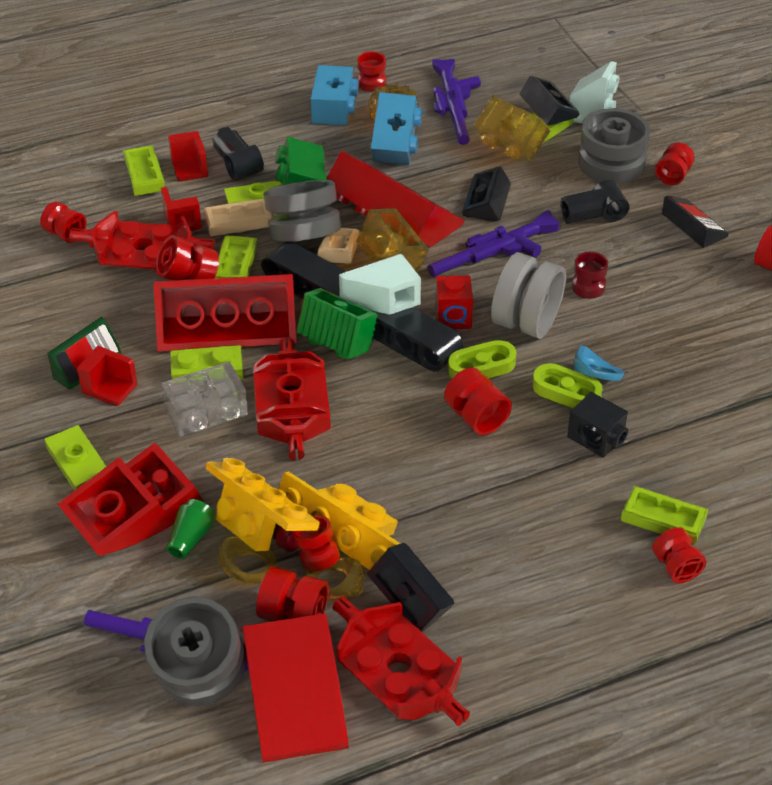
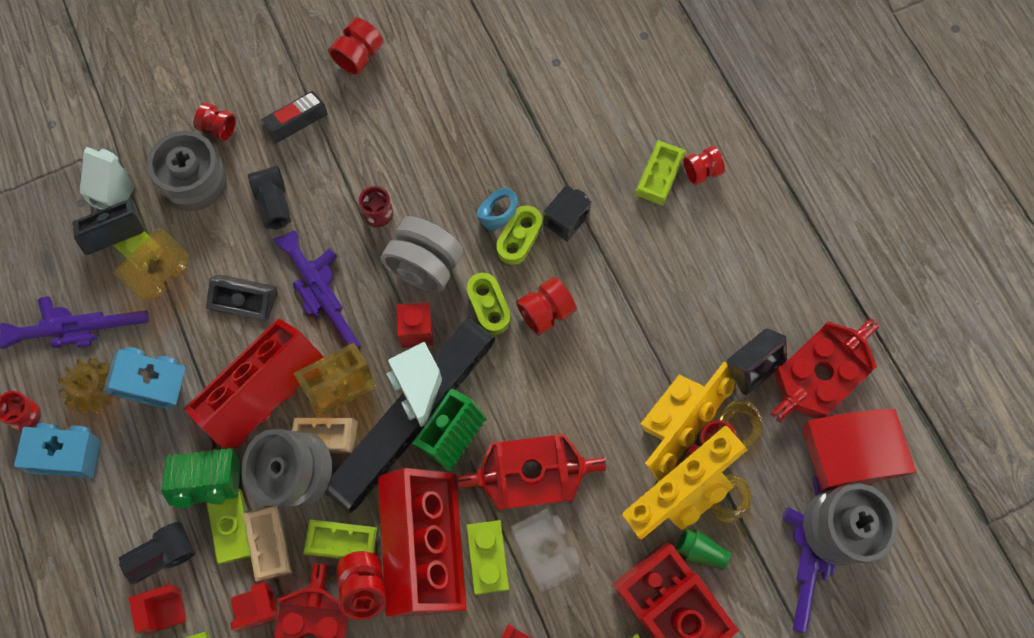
camera: 90 degrees left, 25 degrees up
(286, 597) = (777, 458): red wheel -> none

